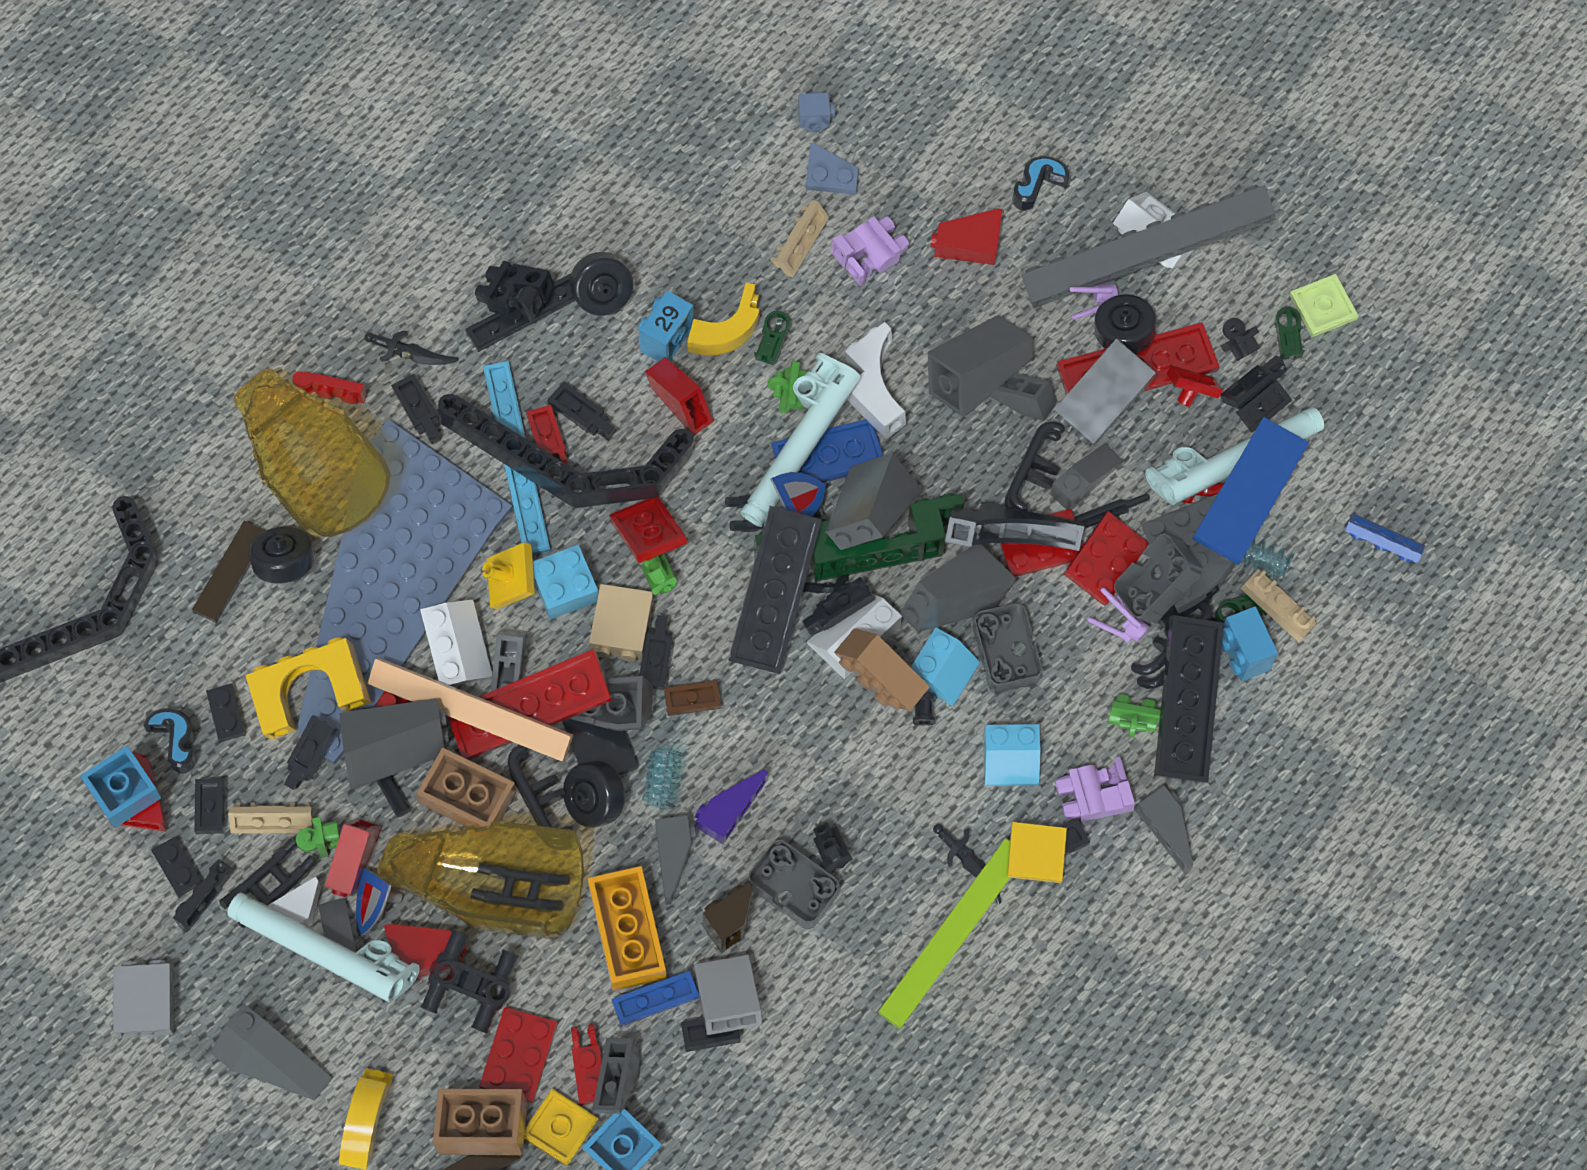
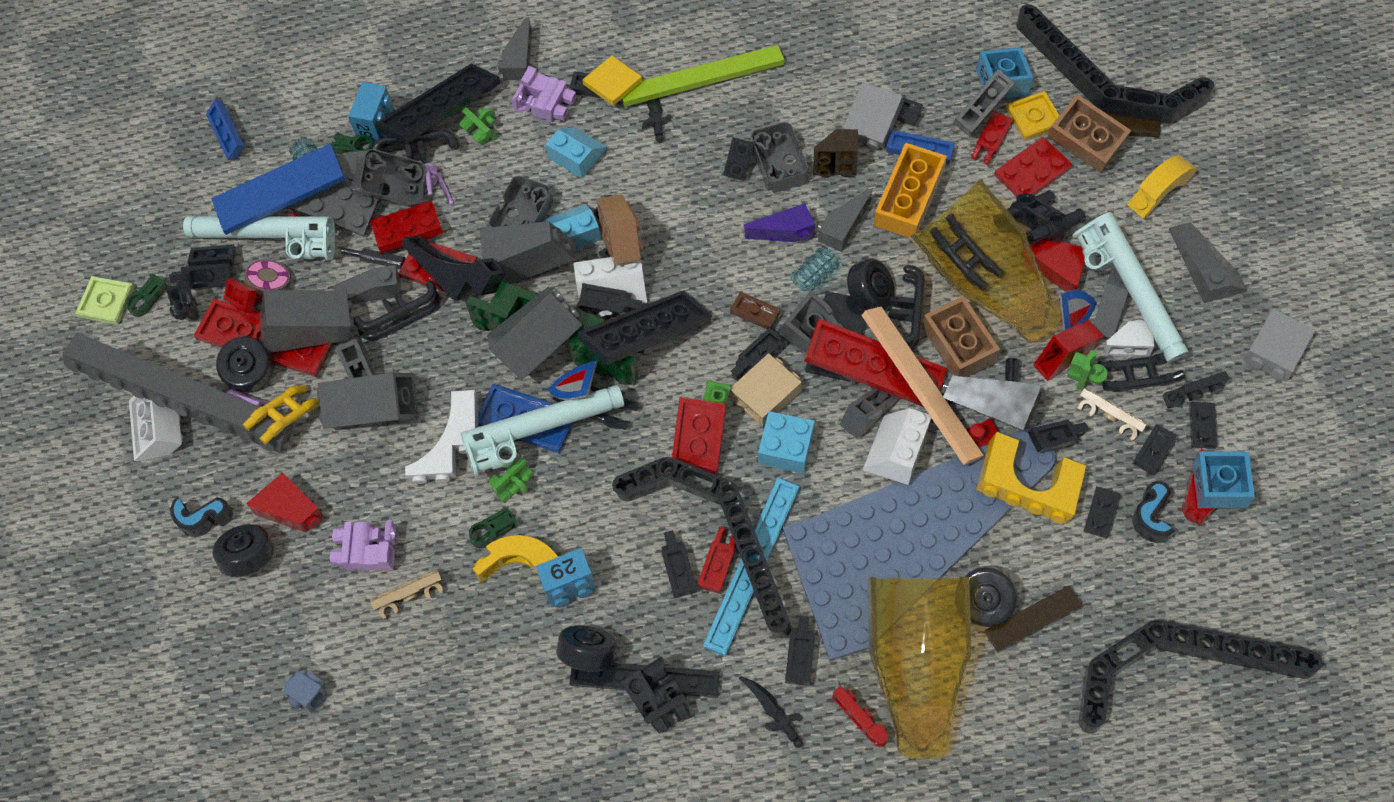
camera: 135 degrees left, 5 degrees down
(510, 575) = (823, 468): yellow tile -> none
(680, 395) = (596, 528): red slope -> none
(829, 172) = (338, 635): sand blue wing -> none
(969, 174) = (242, 550): none -> black wheel
(1055, 290) = (281, 421): none -> yellow piece
(1189, 419) = (267, 276): none -> tile
(1278, 605) = (329, 126): tan plate -> none

